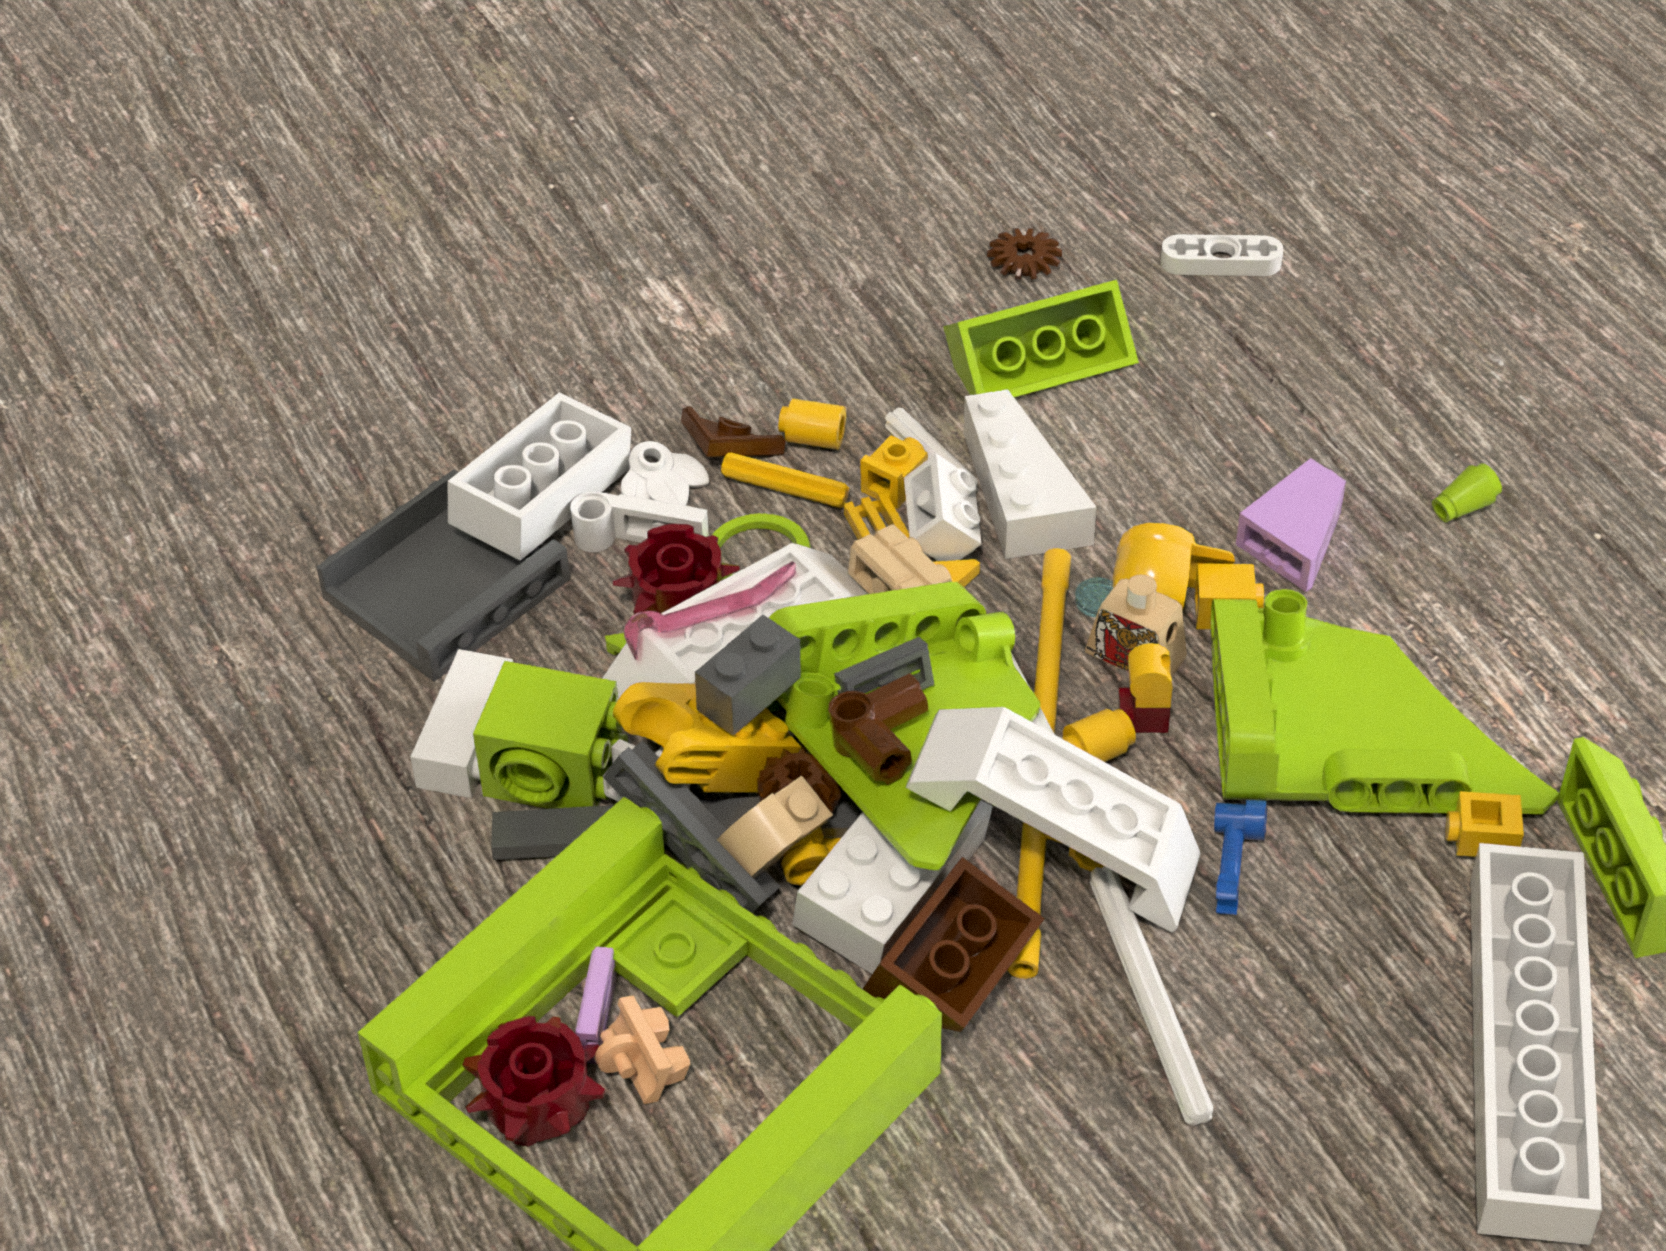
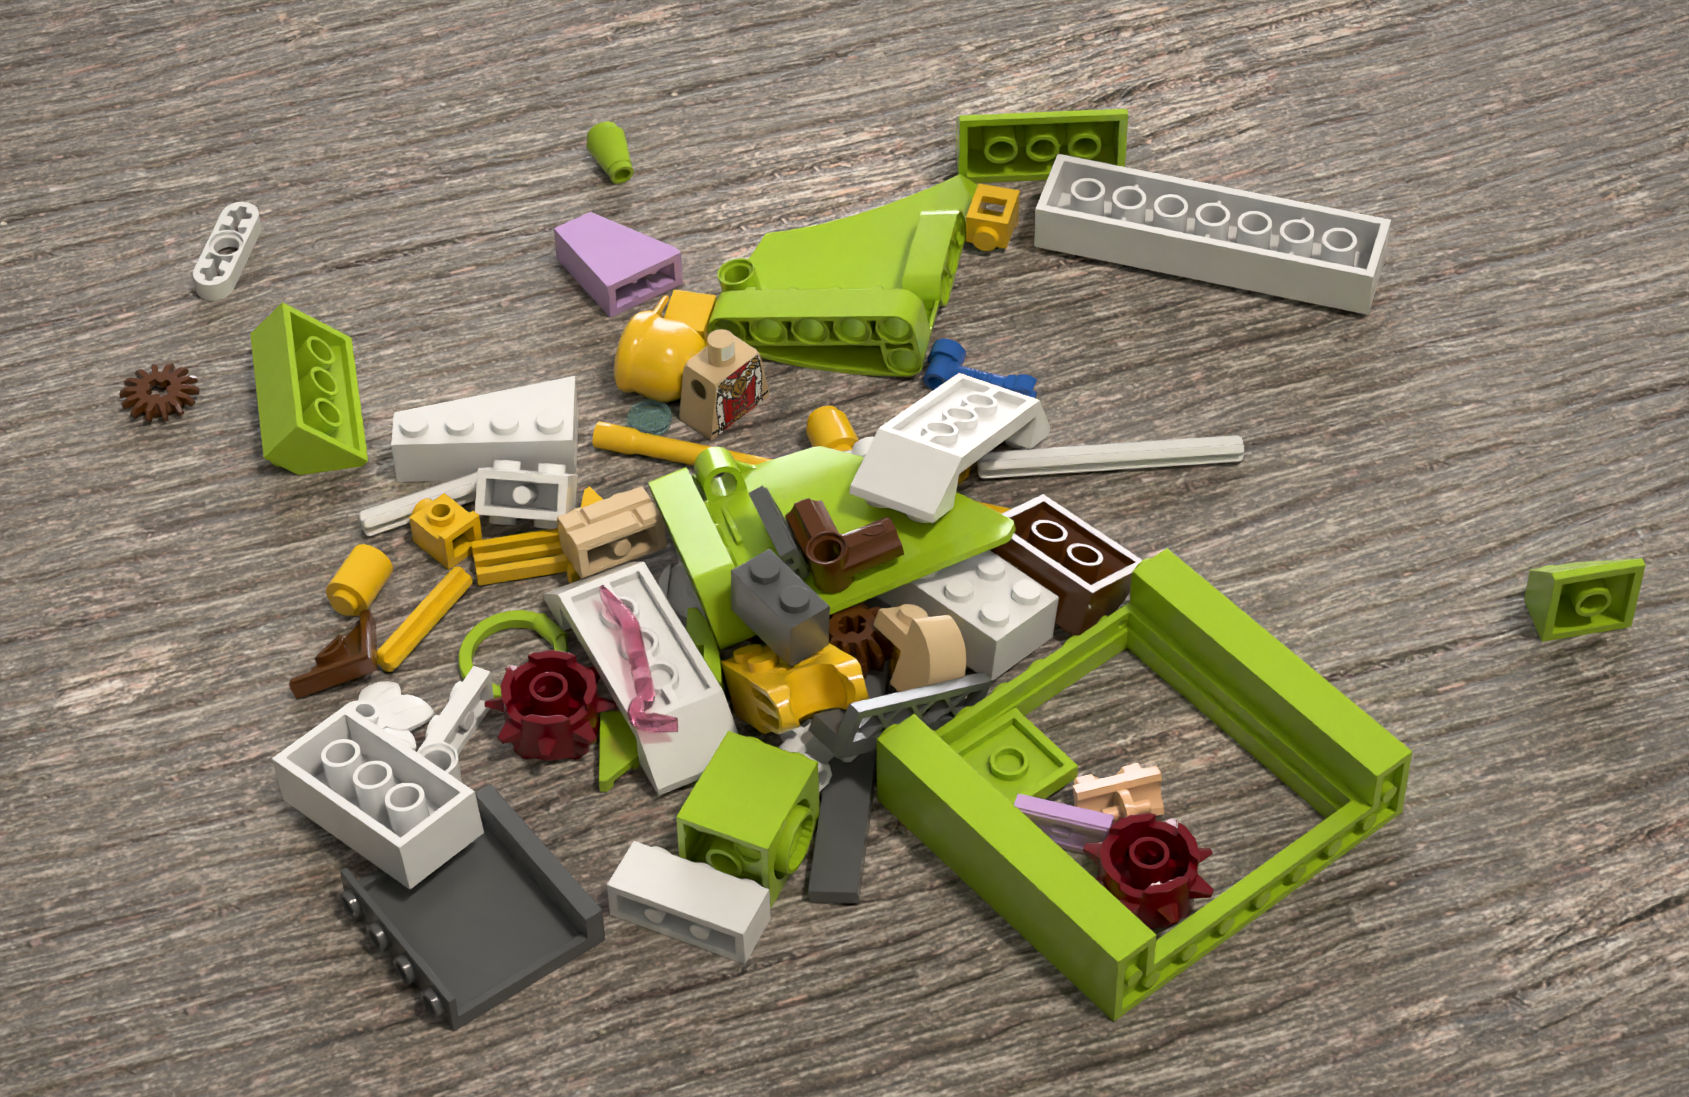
camera: 80 degrees left, 0 degrees up
(1150, 689) = (797, 389): yellow leg -> none

